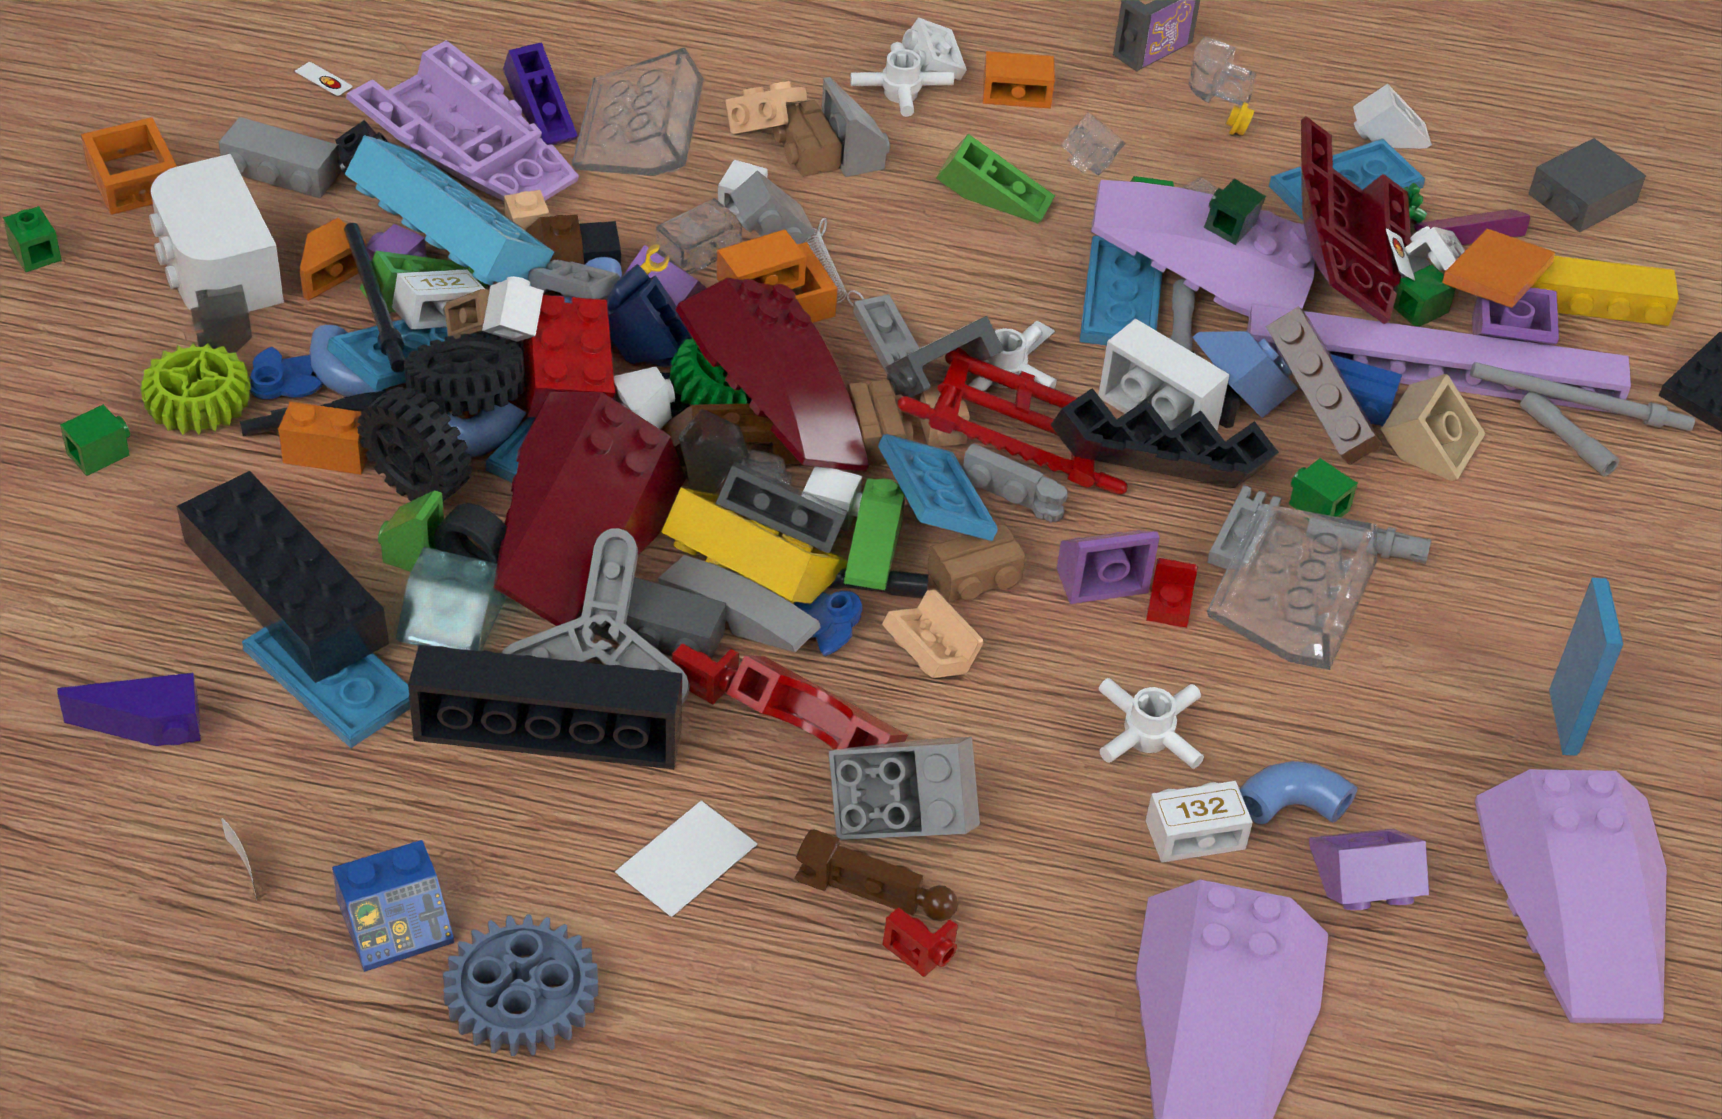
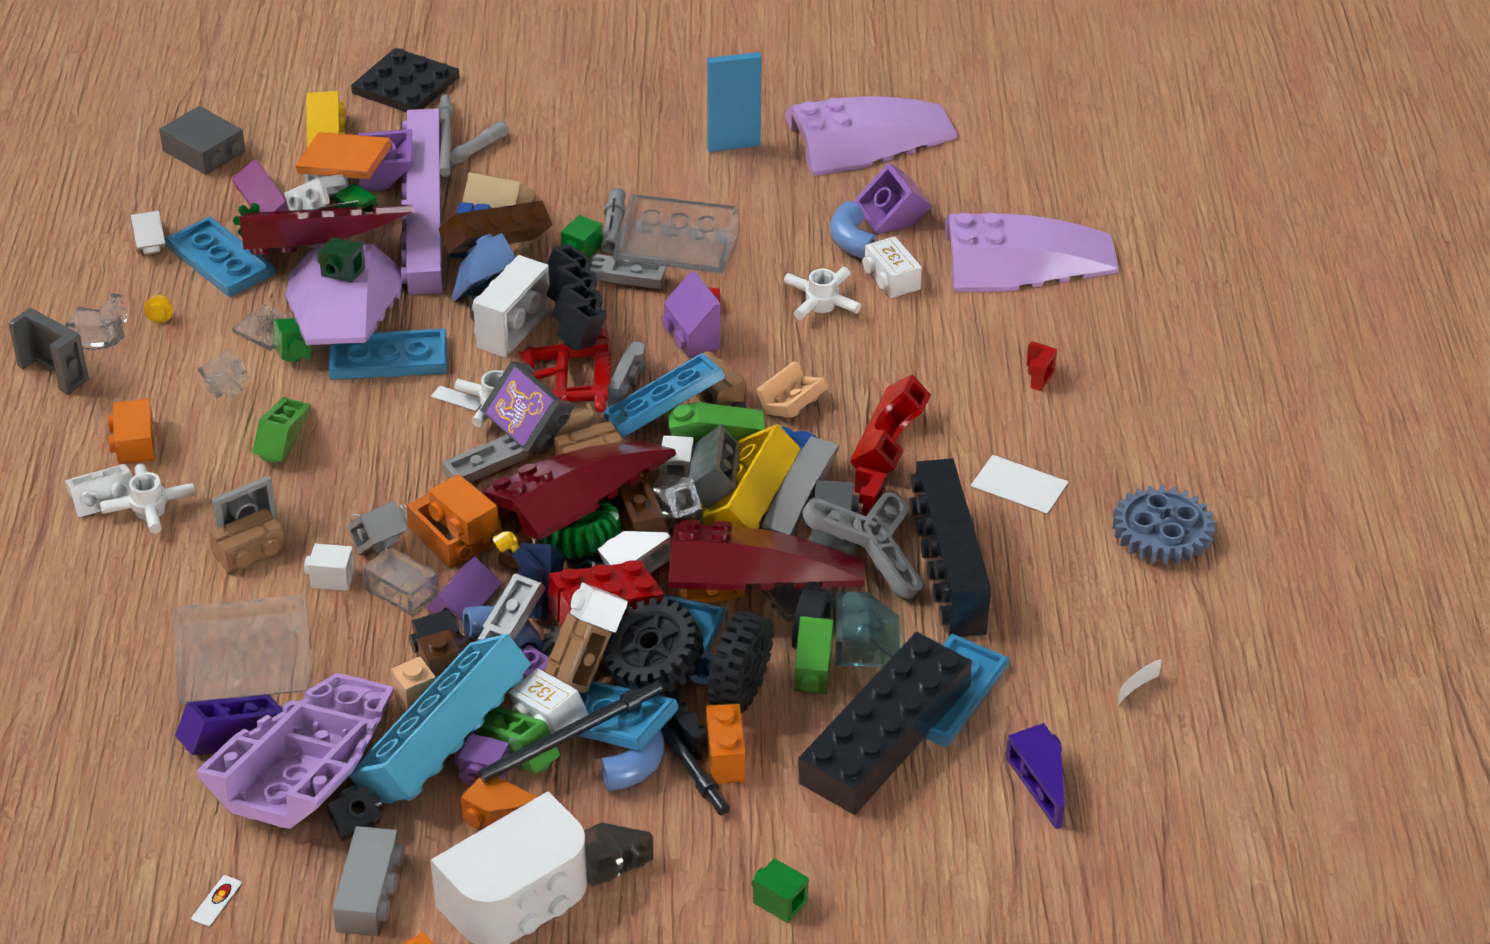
camera: 100 degrees left, 5 degrees down
(195, 388) = (715, 839): lime gear -> none
(279, 376) = (651, 804): blue plate -> none
(392, 905) = (1133, 598): blue slope -> none
(762, 109) = (221, 564): light nougat bracket -> none
(869, 878) = (1002, 405): reddish brown plate -> none
(905, 789) = (940, 367): light grey slope -> none
(1182, 307) = (436, 318): light grey piece -> none

